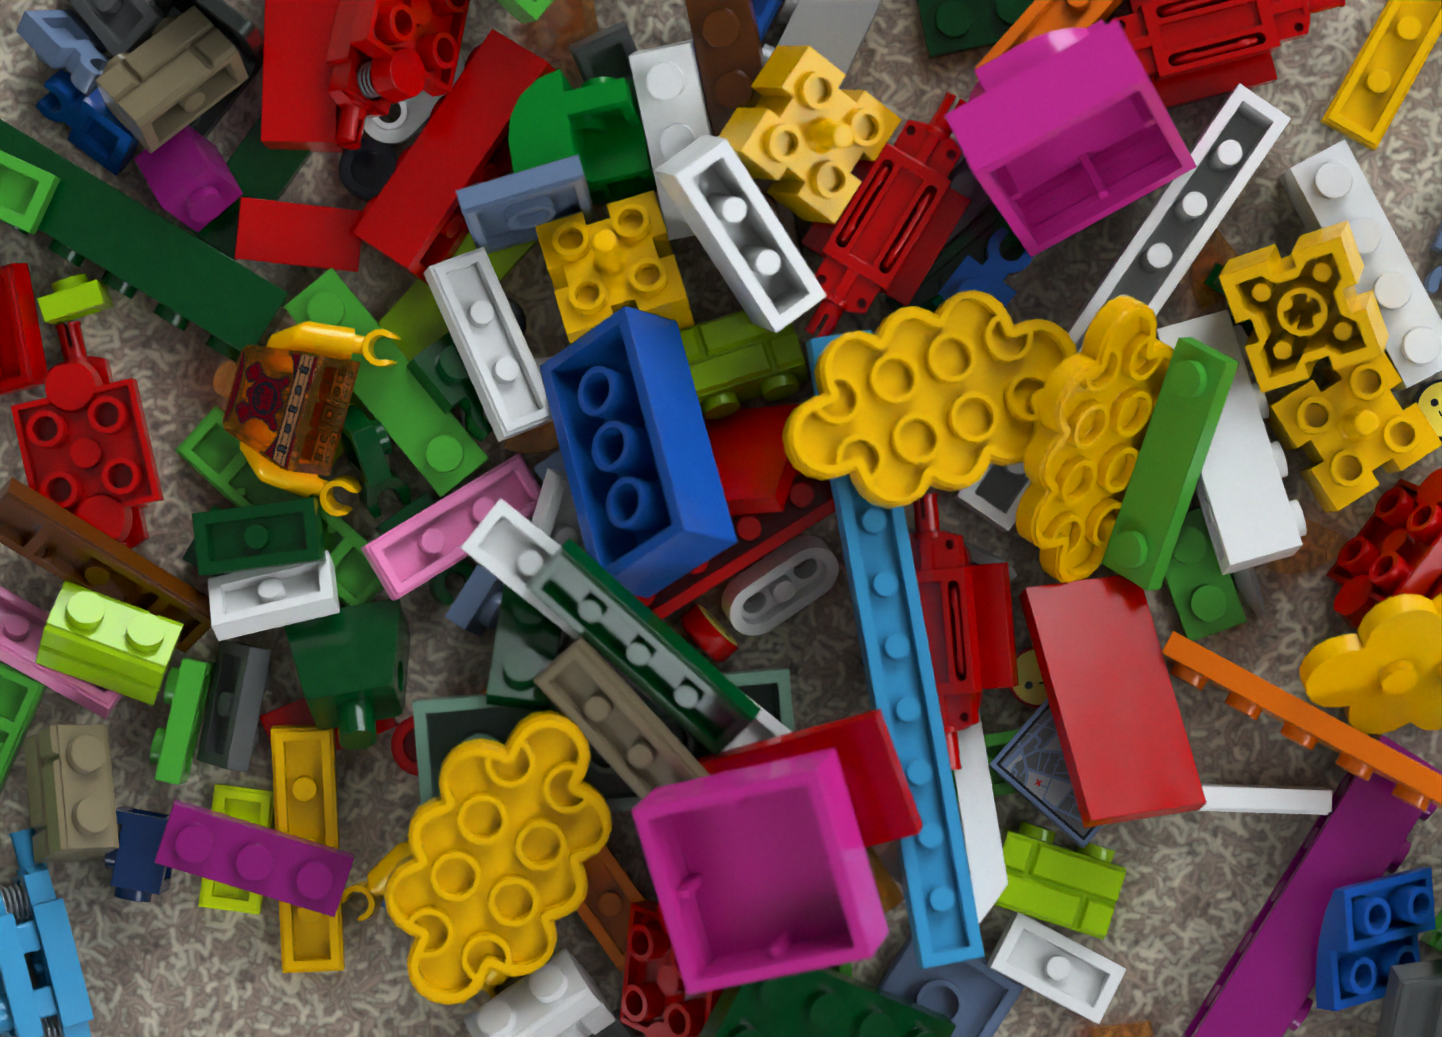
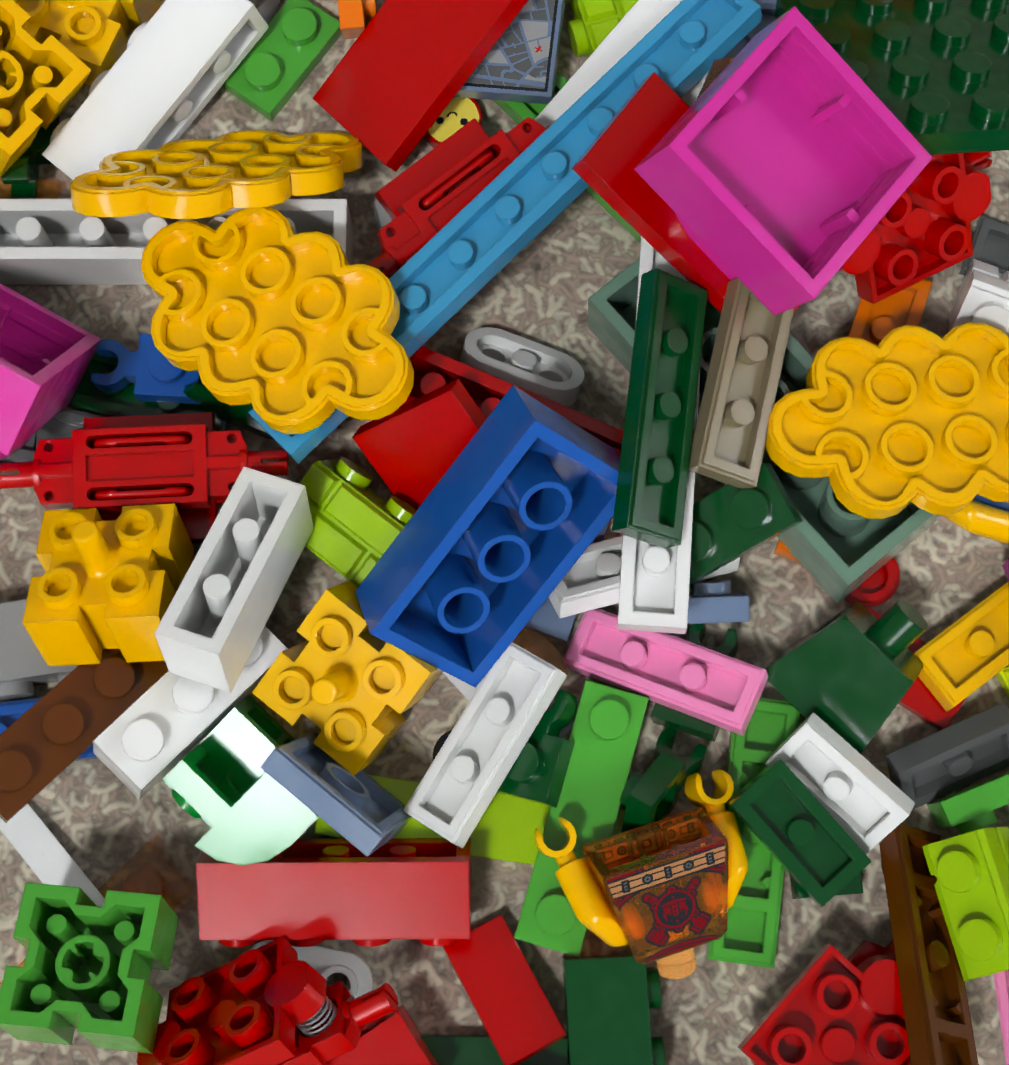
camera: 125 degrees left, 10 degrees down
(367, 168) = (405, 966): black tile -> none
(605, 53) = (160, 823): dark grey tile -> none
(709, 633) = (604, 394): red tile -> none
(1169, 462) = (198, 112): bright green plate -> none

